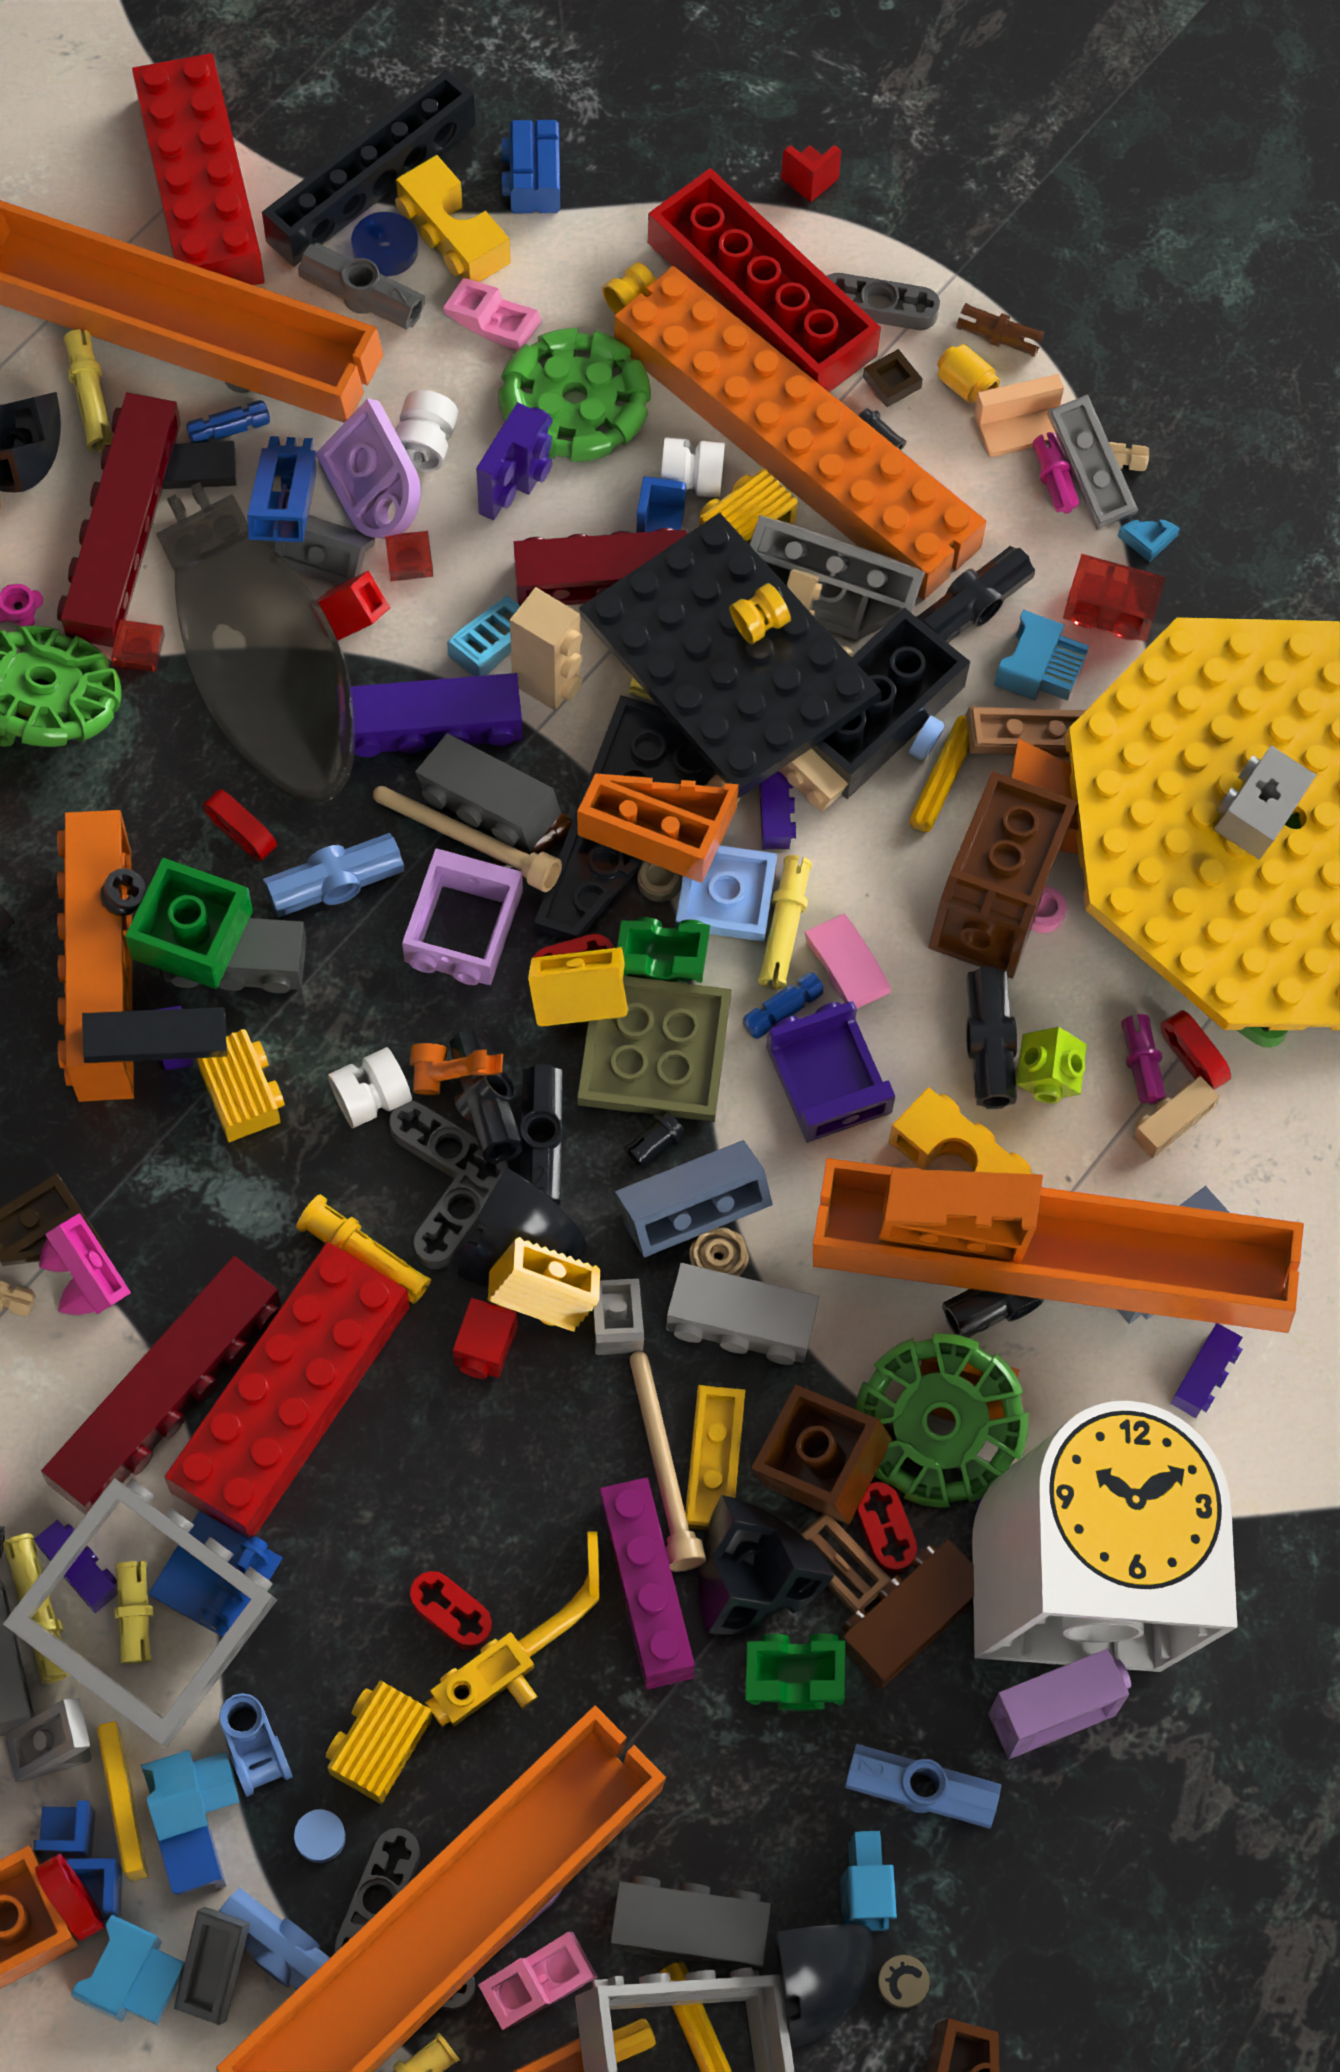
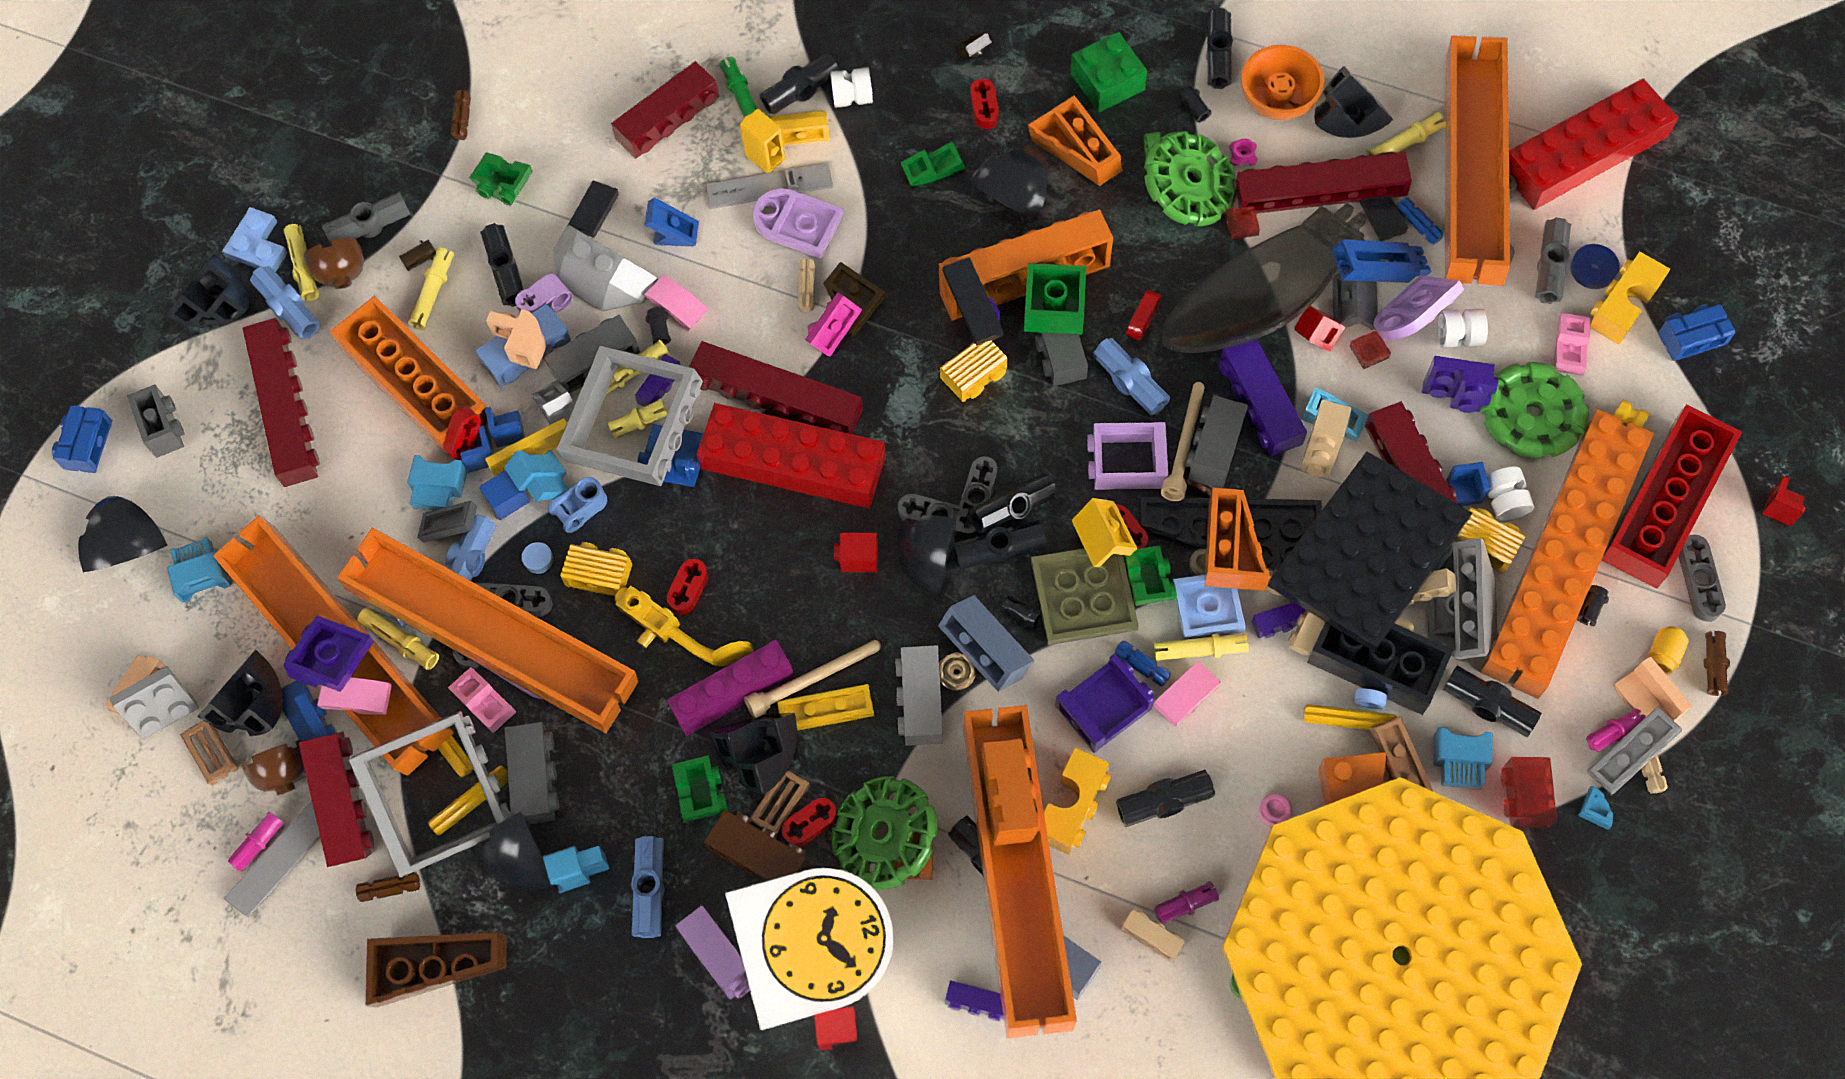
camera: 80 degrees right, 0 degrees up
(135, 889) = (1050, 248): black bush -> none
(346, 1235) = (898, 457): yellow pin -> none
(369, 167) = (1638, 231): black brick -> none
(369, 1087) = (992, 434): white wheel -> none
(432, 1066) = (1020, 471): orange brick -> none
(544, 1285) = (896, 570): yellow brick -> none
(618, 1318) = (895, 621): light grey slope -> none
(760, 613) = (1397, 551): yellow wheel -> none
(822, 1454) = (838, 764): reddish brown brick -> none
(892, 378) = (1641, 602): dark brown plate -> none
(903, 1982) = (528, 909): dark tan tile -> none
(1001, 874) = (1272, 760): reddish brown bracket -> none
(1051, 1064) = (1156, 840): lime brick -> none
(1195, 1049) = (1204, 935): red beam -> none
(1264, 802) = (1376, 926): light grey brick -> none

